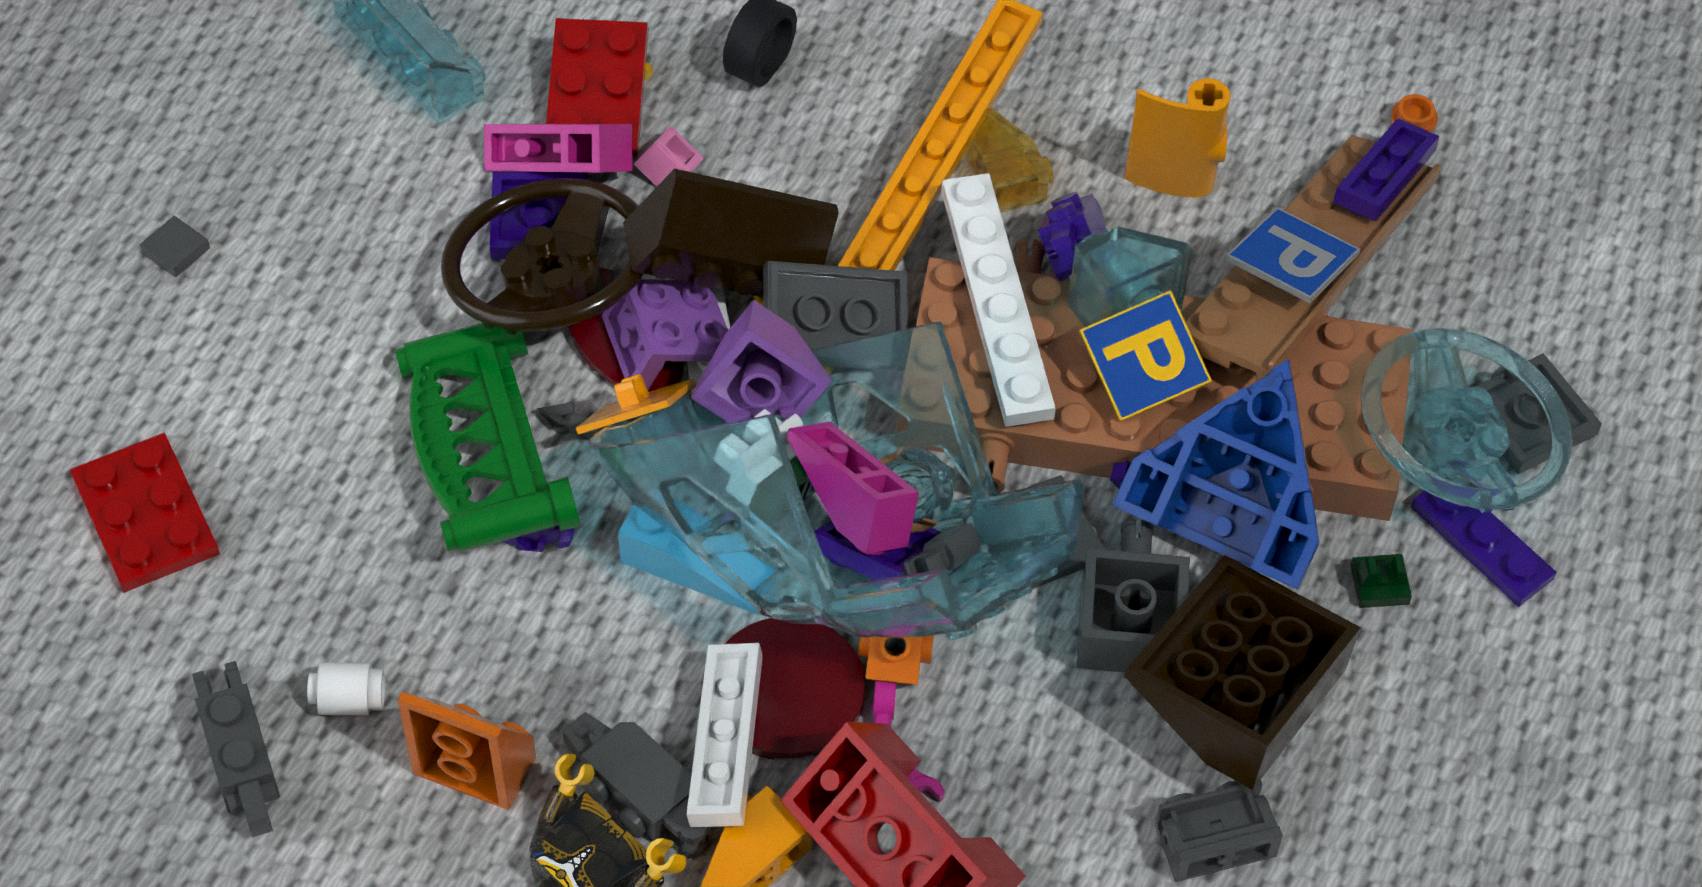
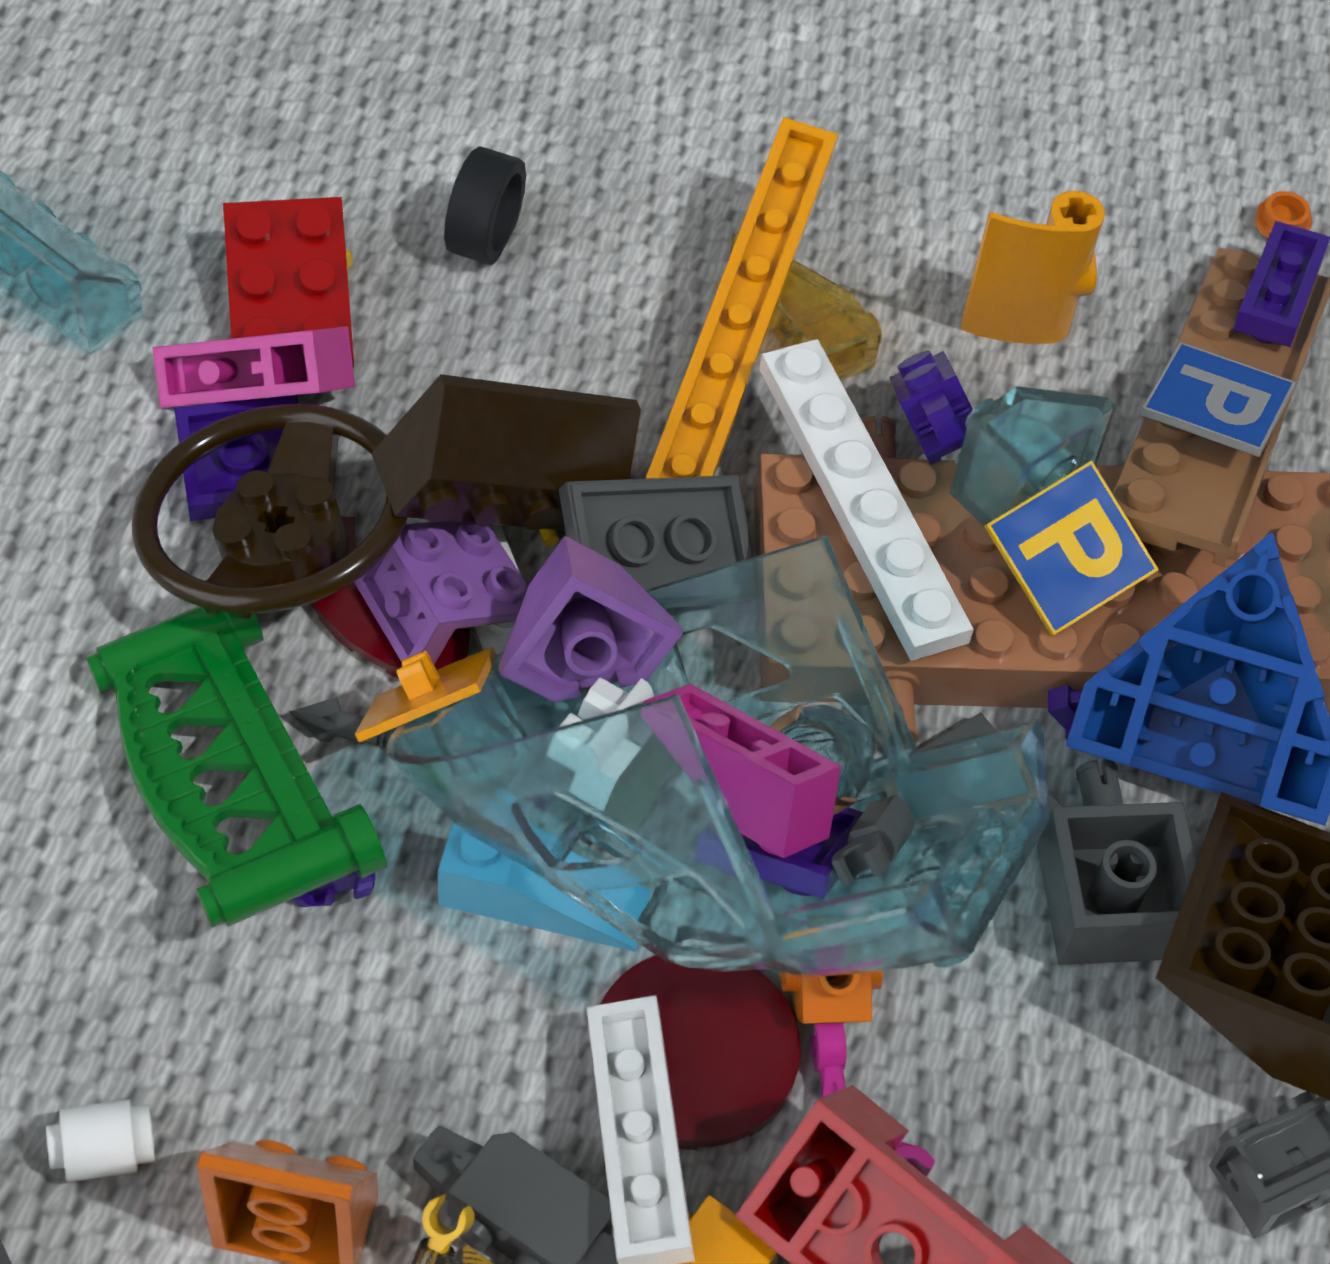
camera: 15 degrees left, 0 degrees up
(668, 153) = (396, 369): bright pink slope -> none

